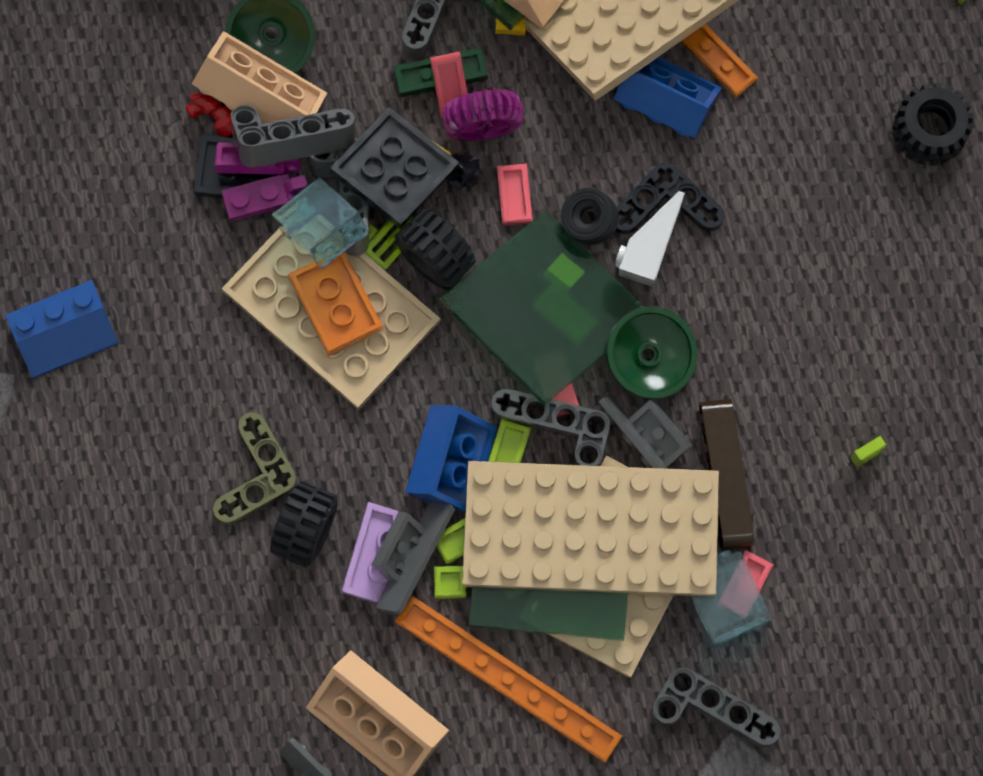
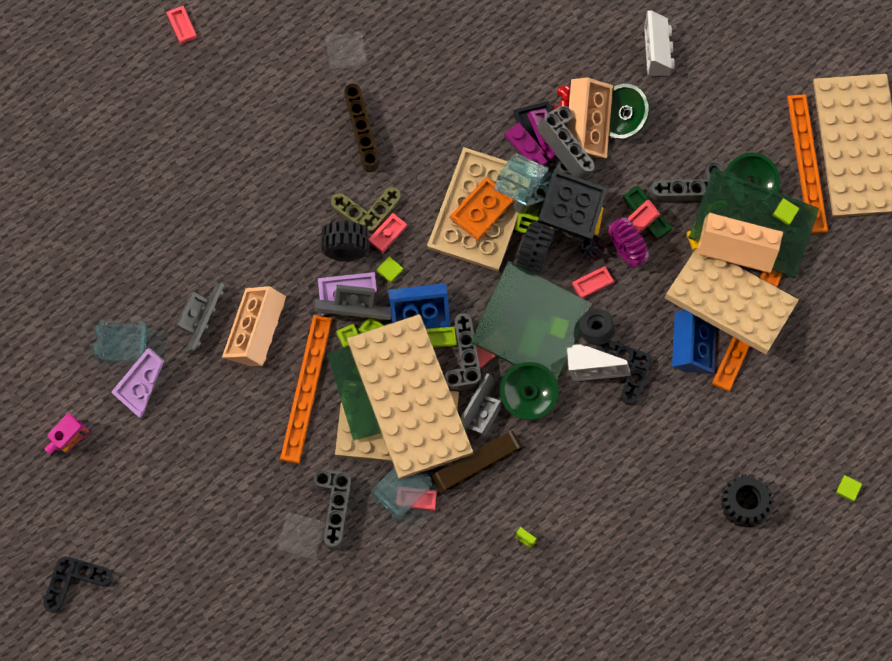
camera: 70 degrees right, 5 degrees down
(61, 329) = (403, 75): blue slope -> none
(109, 417) = (361, 119): none -> dark brown beam
(310, 456) = (387, 233): none -> coral plate
(369, 478) = (389, 269): none -> lime tile

